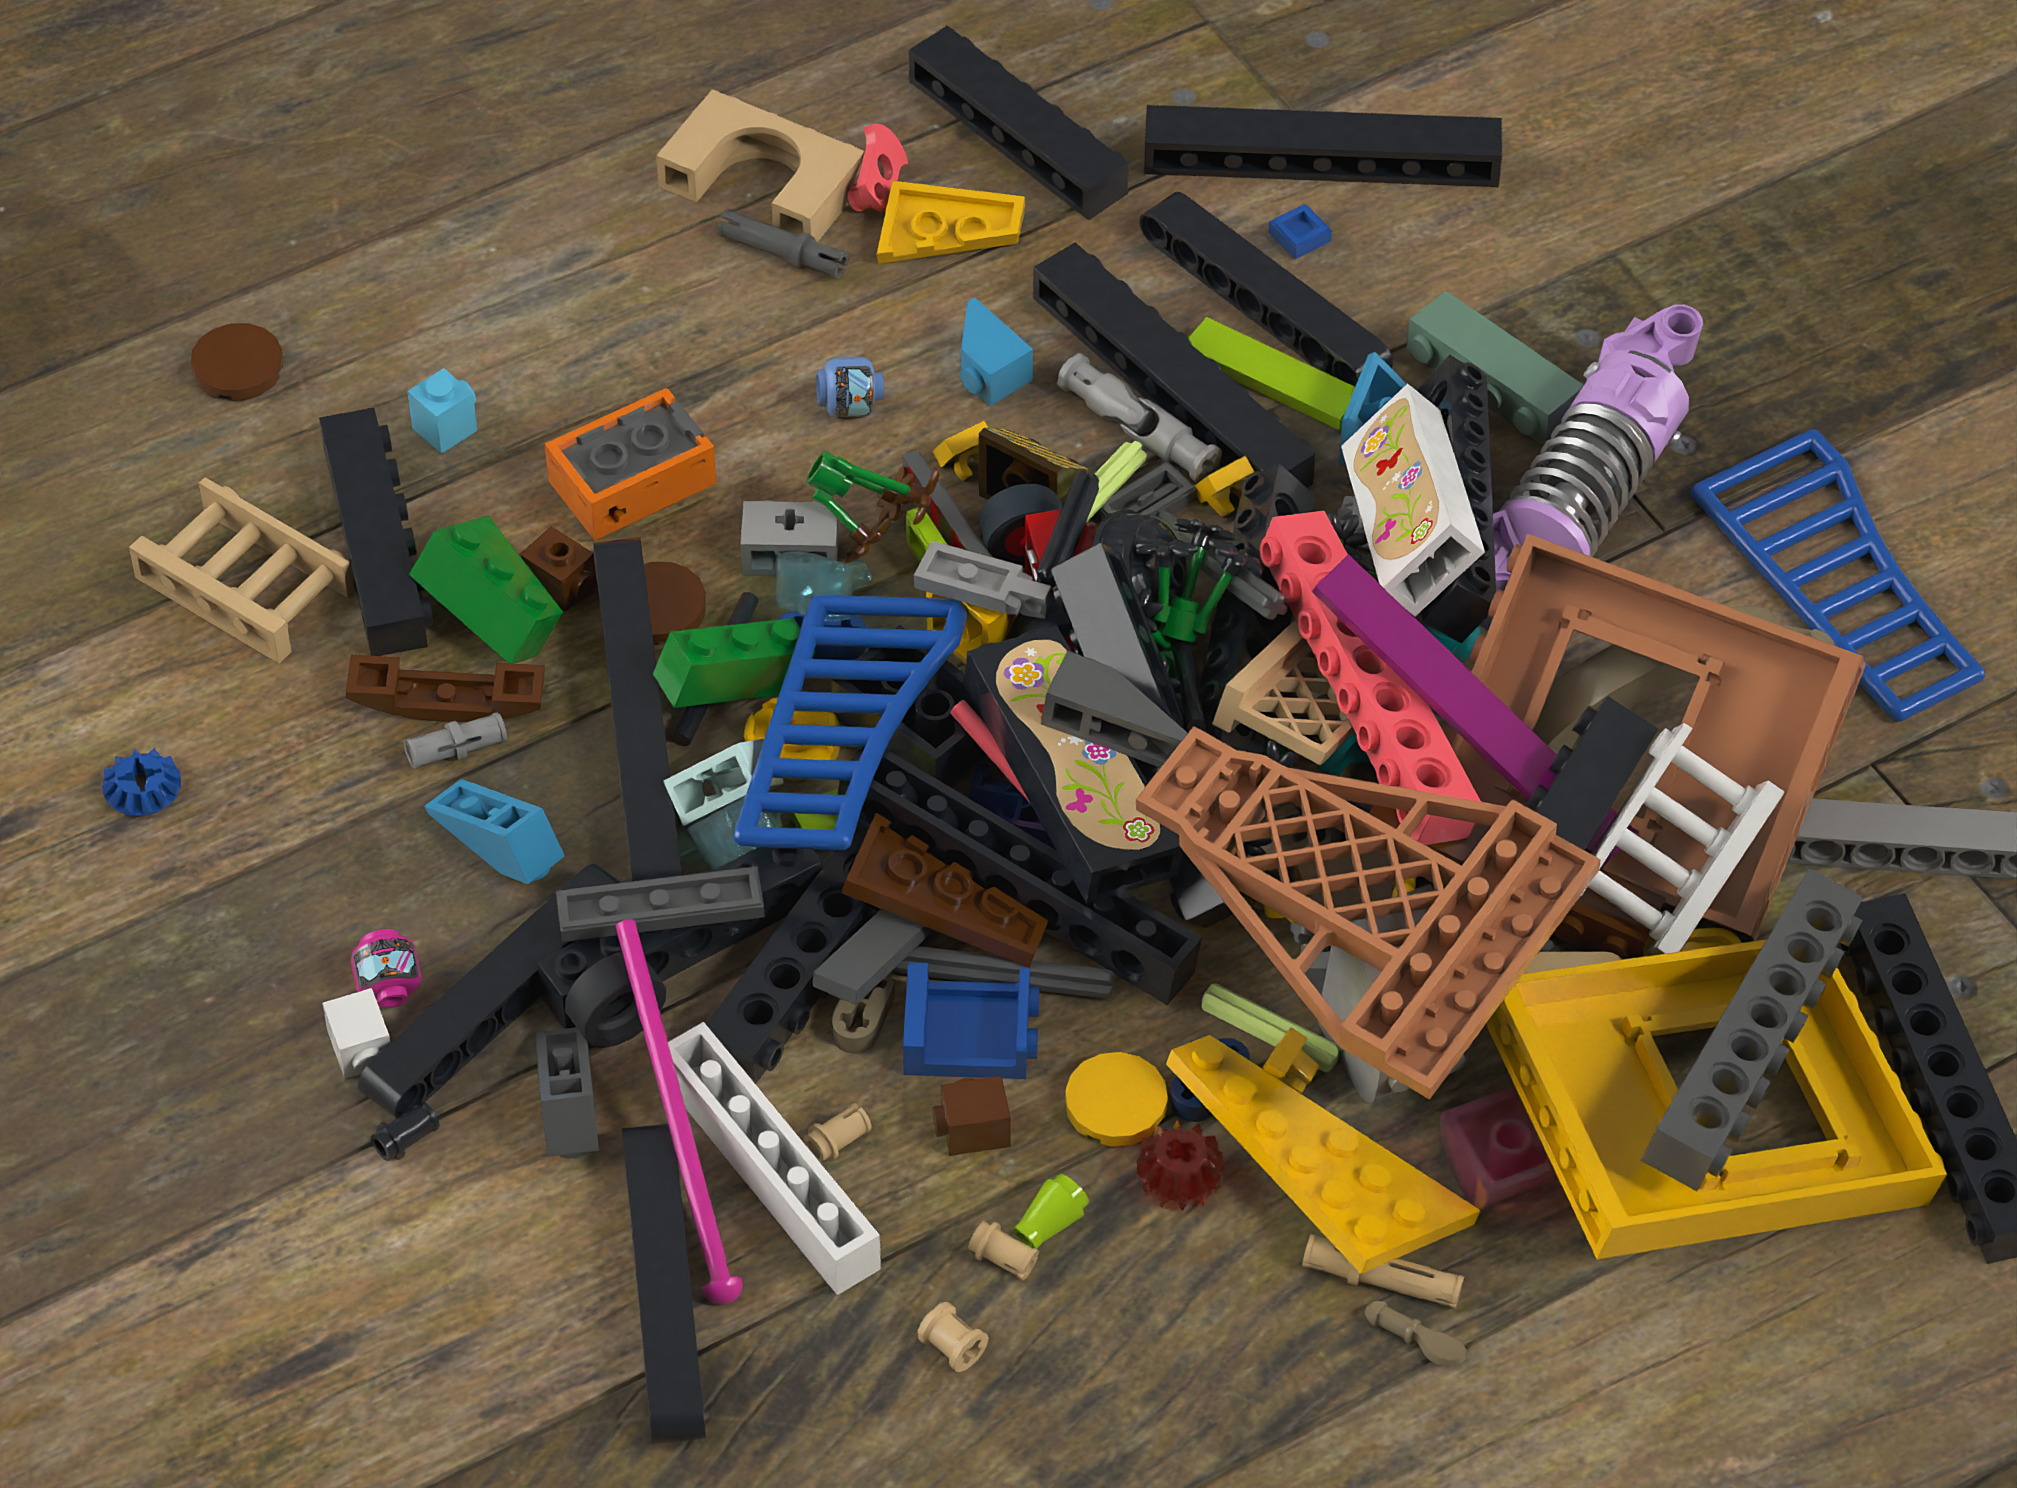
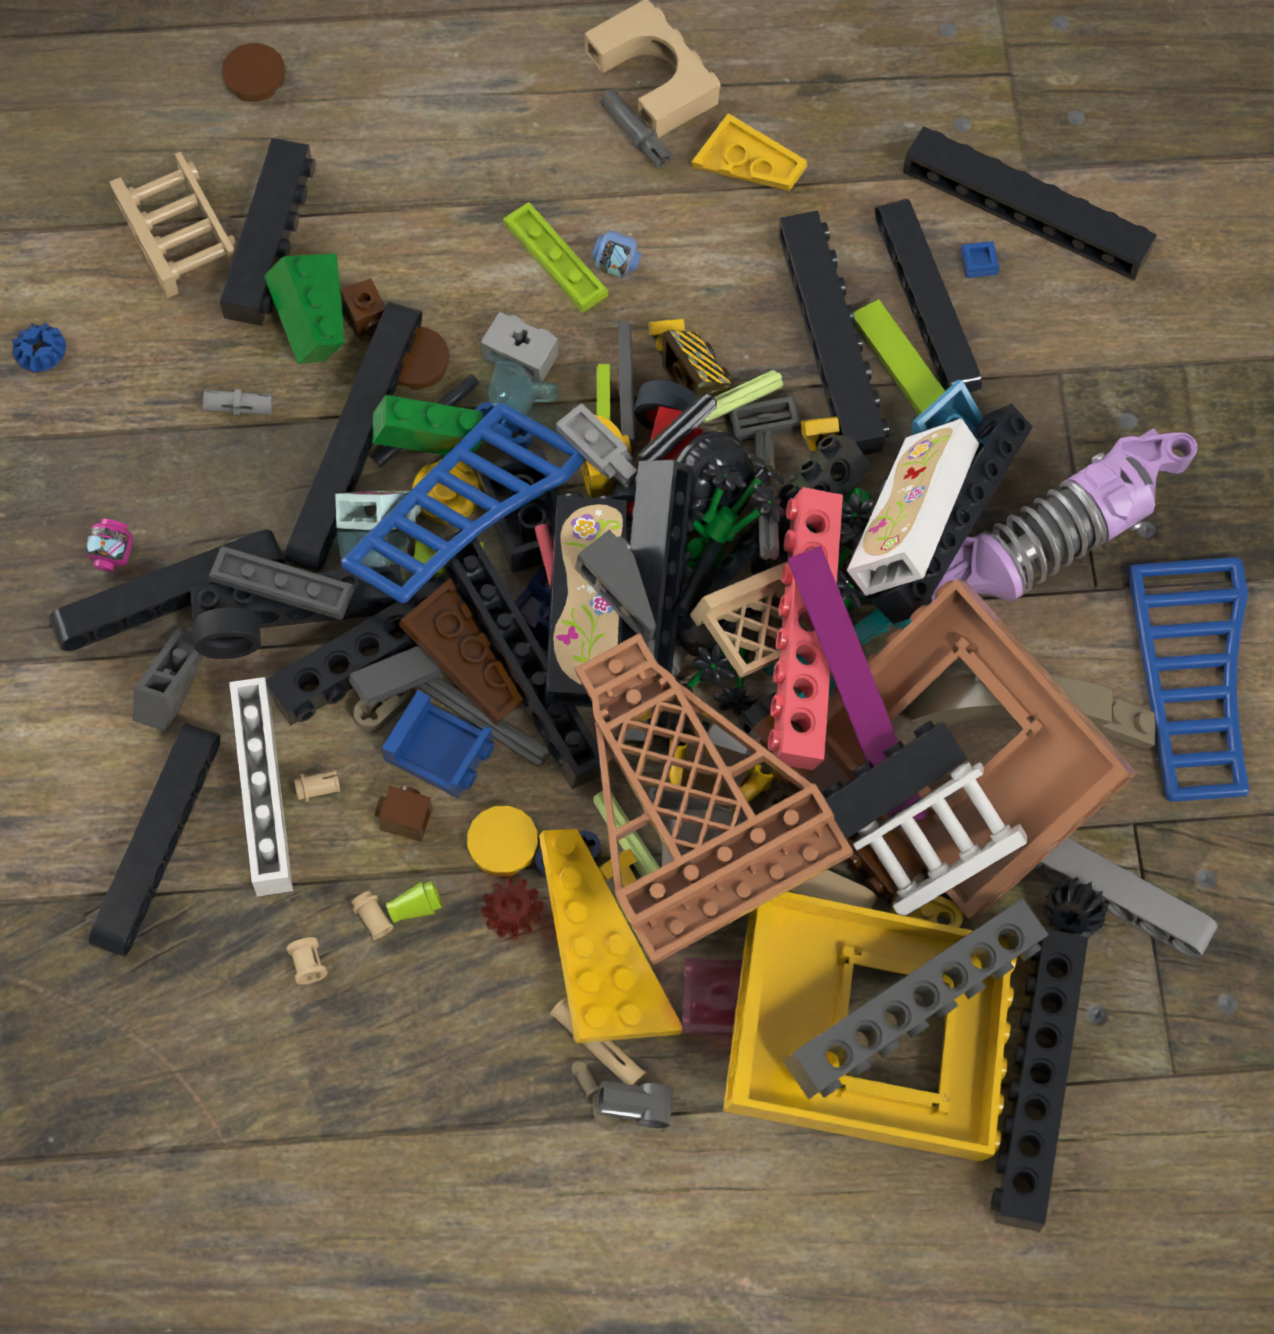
camera: 25 degrees right, 15 degrees up
(355, 1030) = (67, 580): white brick -> none
(393, 1138) = (61, 662): black pin -> none
(443, 410) = (355, 162): medium azure brick -> none
(444, 695) = (248, 365): reddish brown slope -> none
(499, 829) = (227, 477): dark azure slope -> none
(630, 463) = (447, 252): piece -> none
(723, 1287) = (190, 859): dark pink bar -> none
(765, 422) = (555, 257): none -> lime tile
(835, 476) = (558, 322): plant -> none
(872, 188) = (740, 90): coral piece -> none
(992, 356) = (720, 269): dark azure slope -> none
(1018, 122) = (837, 101): black brick -> none
(1116, 402) = (784, 338): light grey piece -> none
(1484, 1310) = (647, 1103): none -> dark grey piece
(1519, 380) = (1042, 403): sand green brick -> none
(1882, 856) = (1075, 907): none -> black gear

